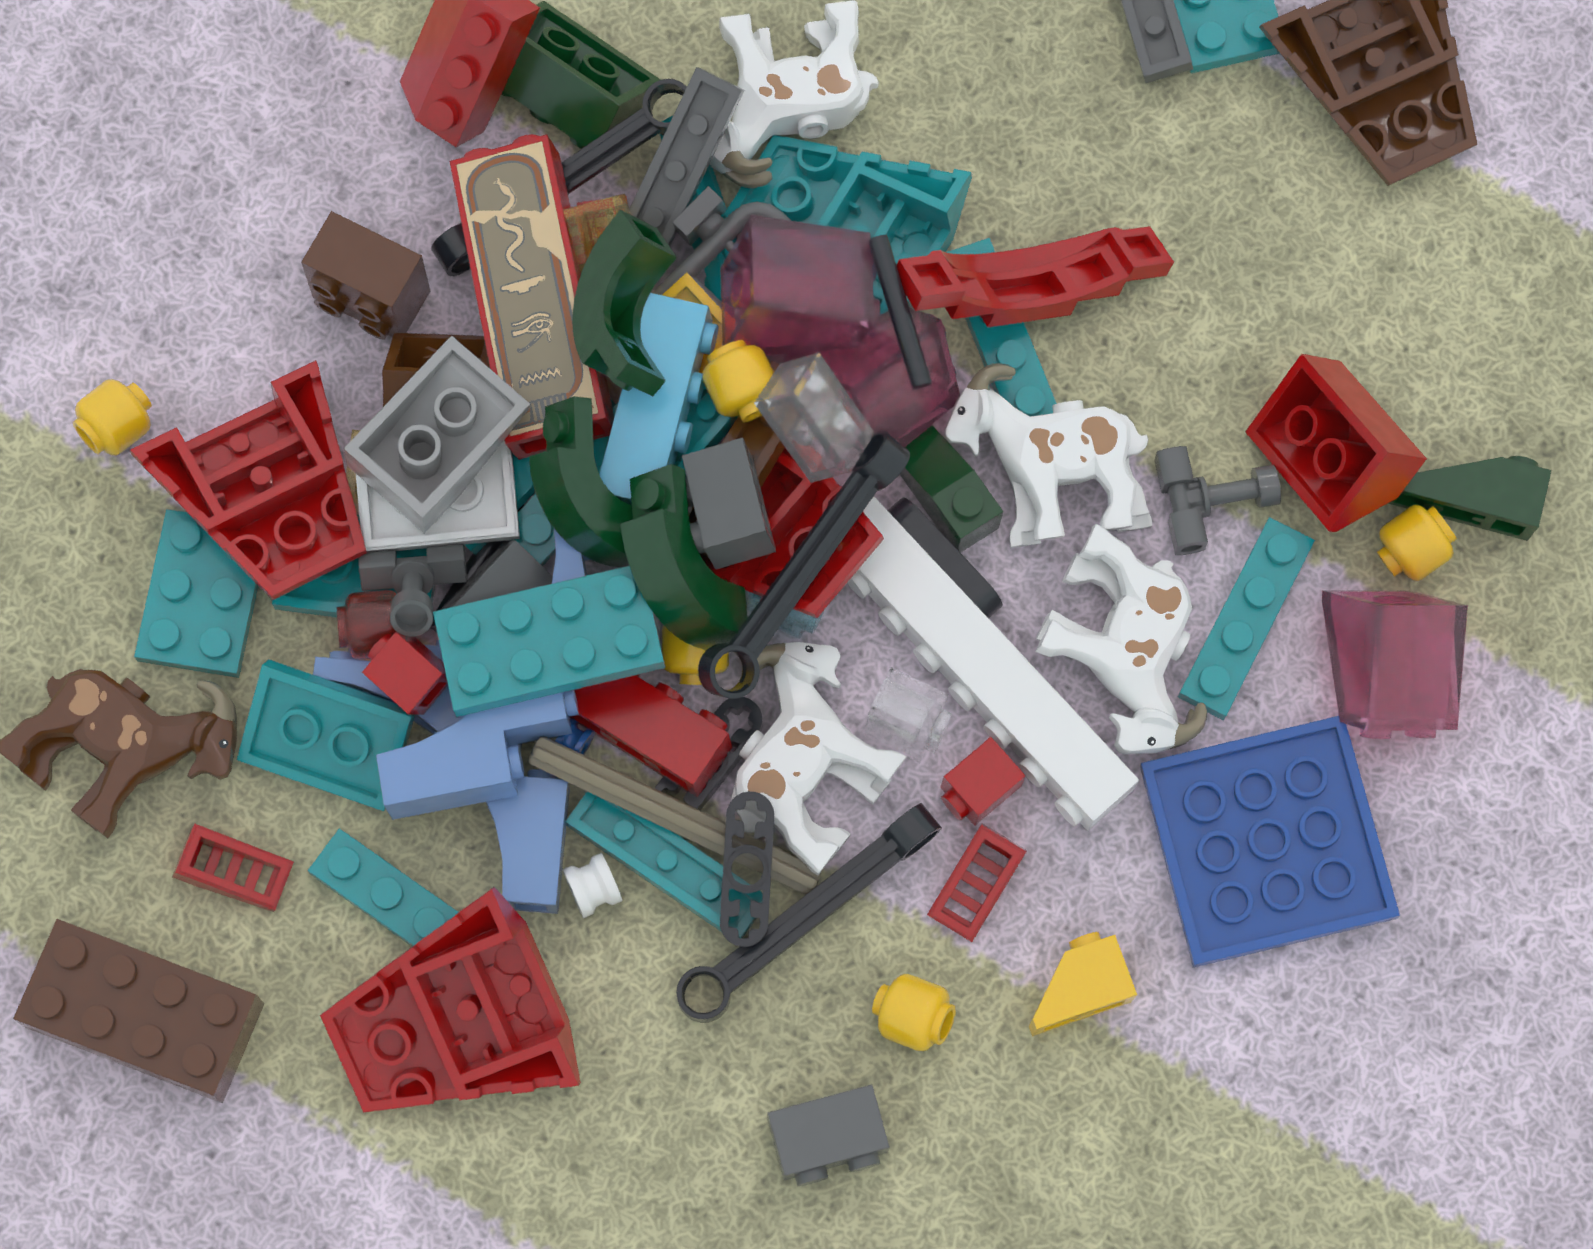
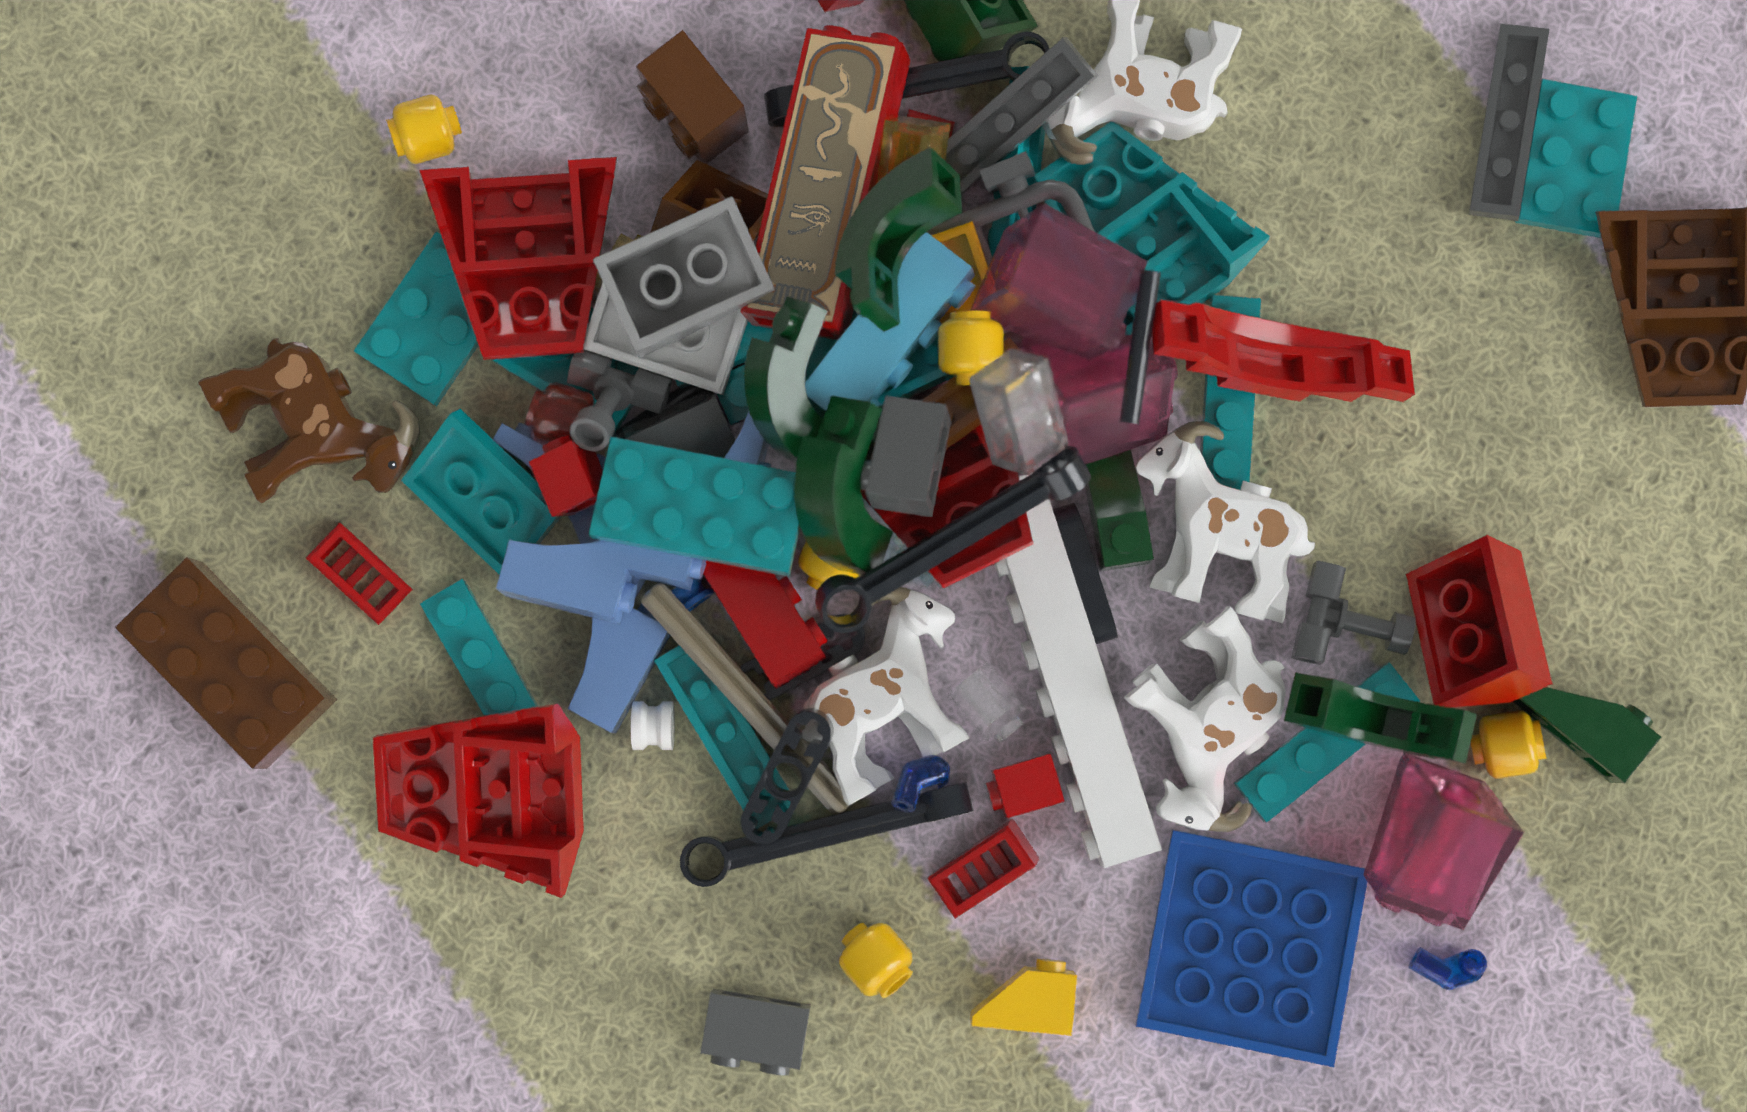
camera: 30 degrees right, 10 degrees up
(872, 816) = (916, 775): none -> clear blue arm
(1286, 567) = (1380, 719): none -> dark green arch
(1467, 779) = (1452, 971): none -> clear blue arm

